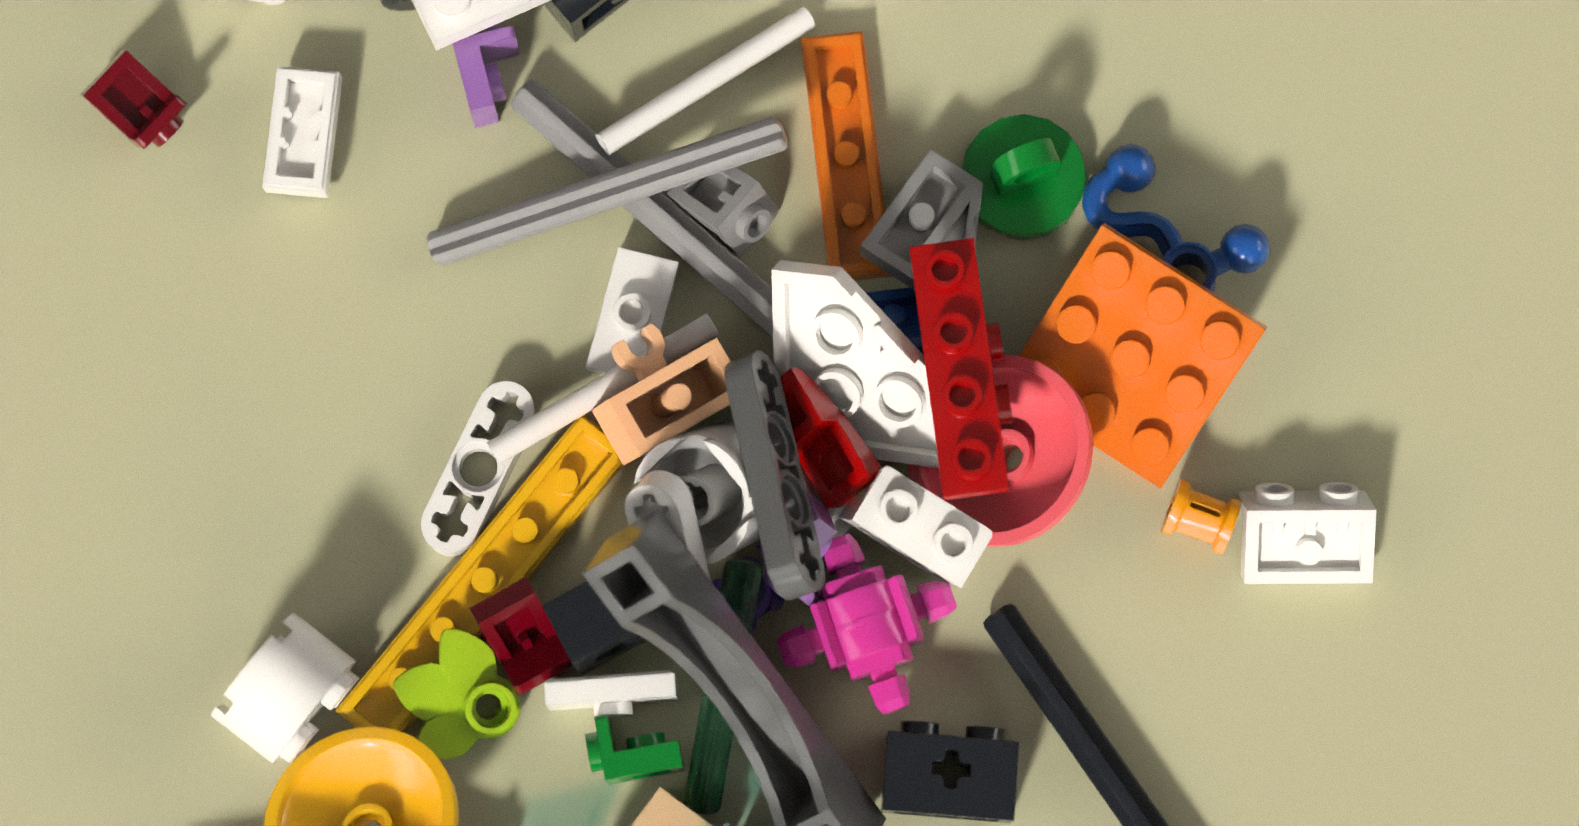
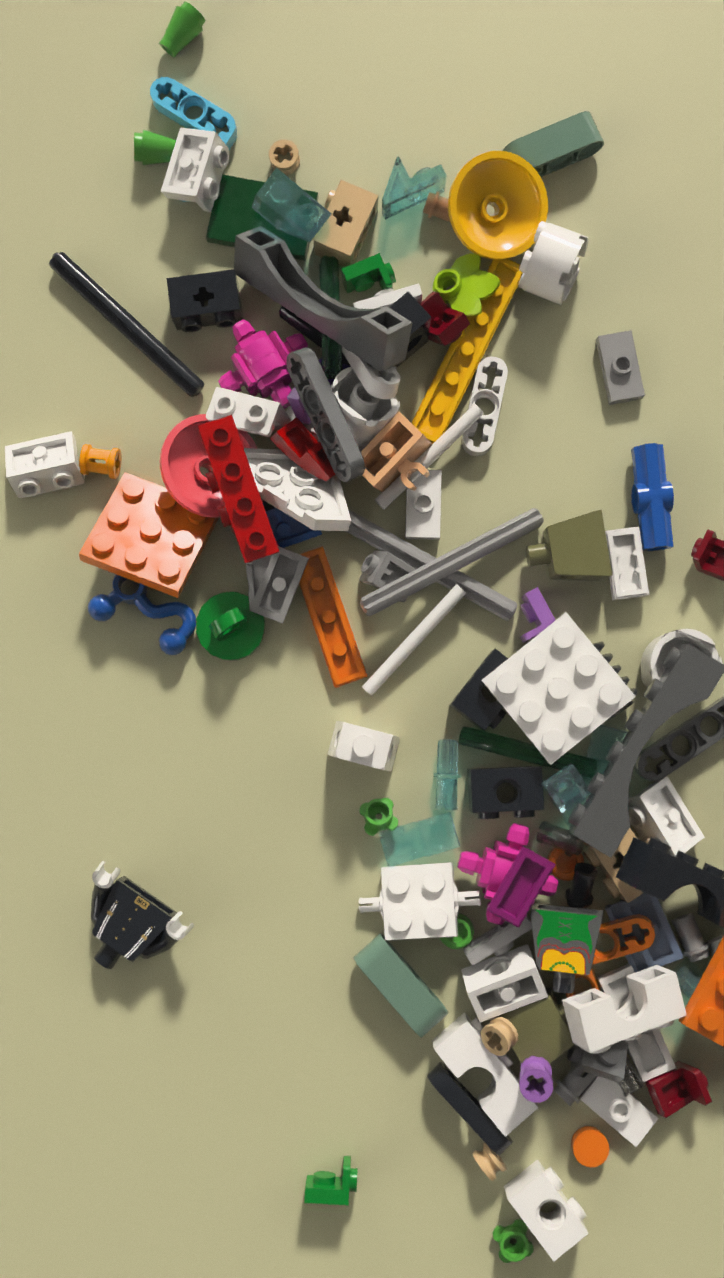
camera: 170 degrees right, 5 degrees up
(213, 486) = (620, 367): none -> light grey plate
(223, 234) = (652, 497): none -> blue piece
(387, 173) = (574, 549): none -> olive torso

